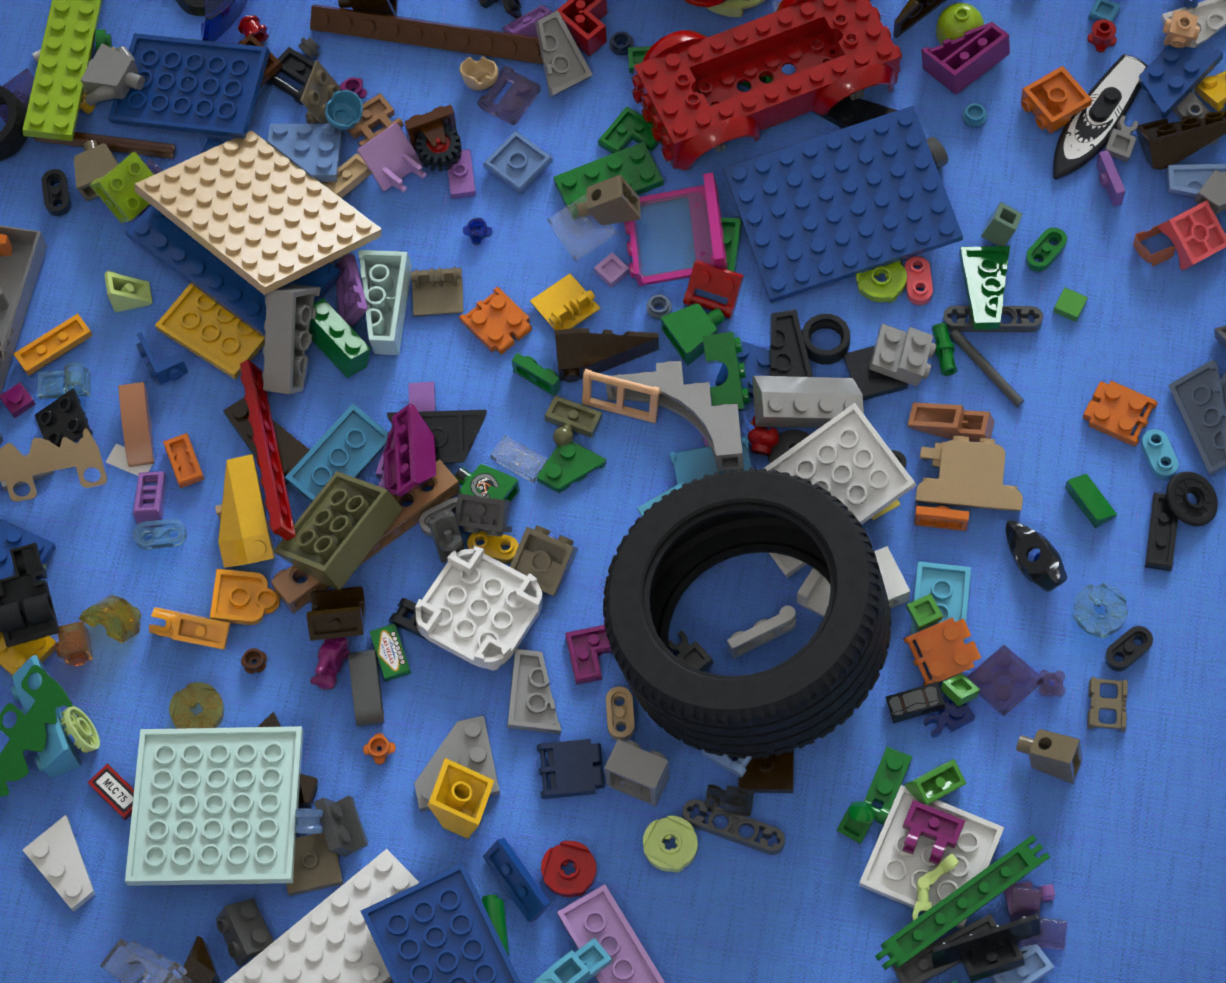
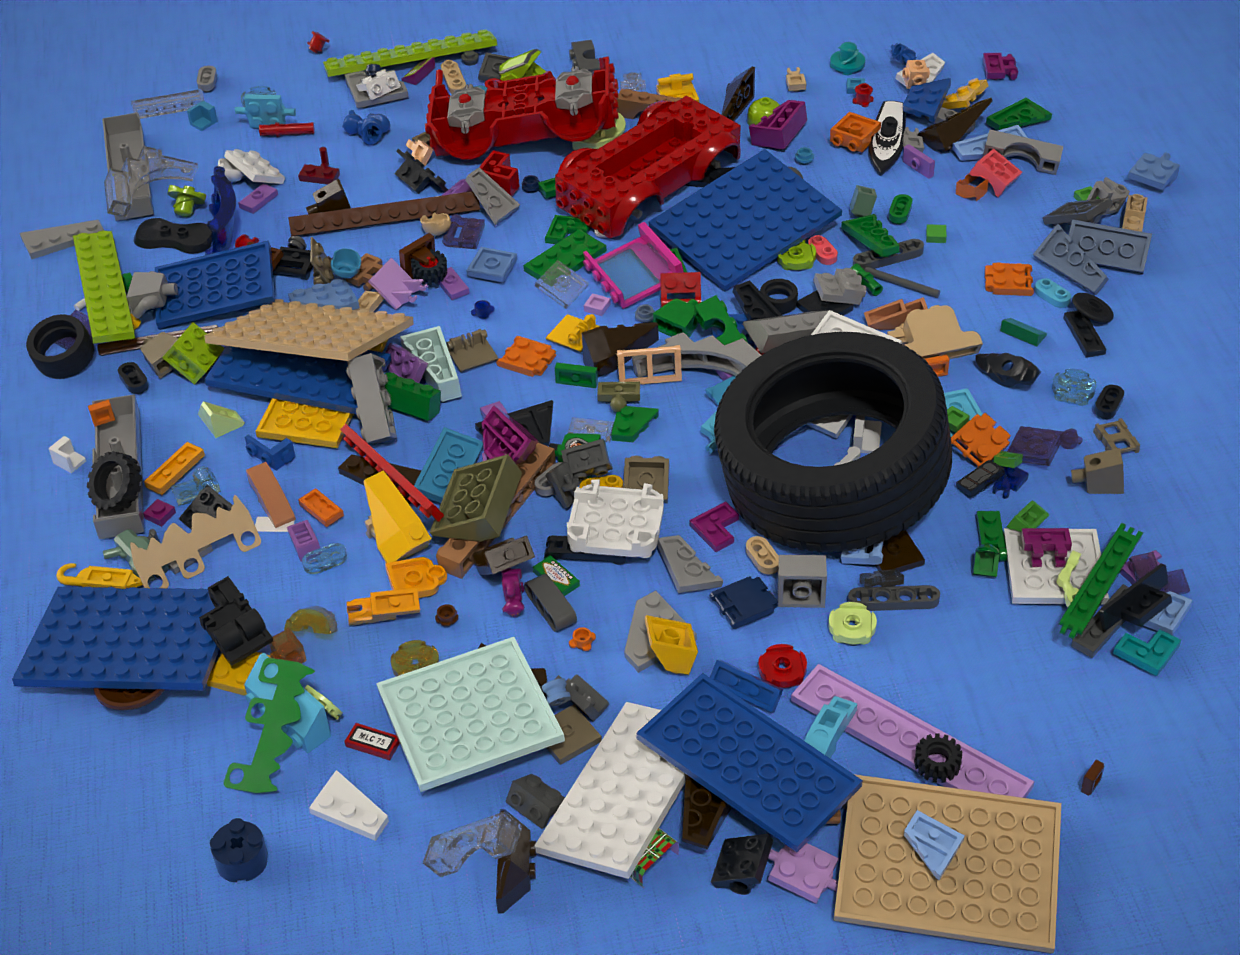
camera: 25 degrees left, 20 degrees down
(611, 202) = (579, 255): dark tan torso -> none

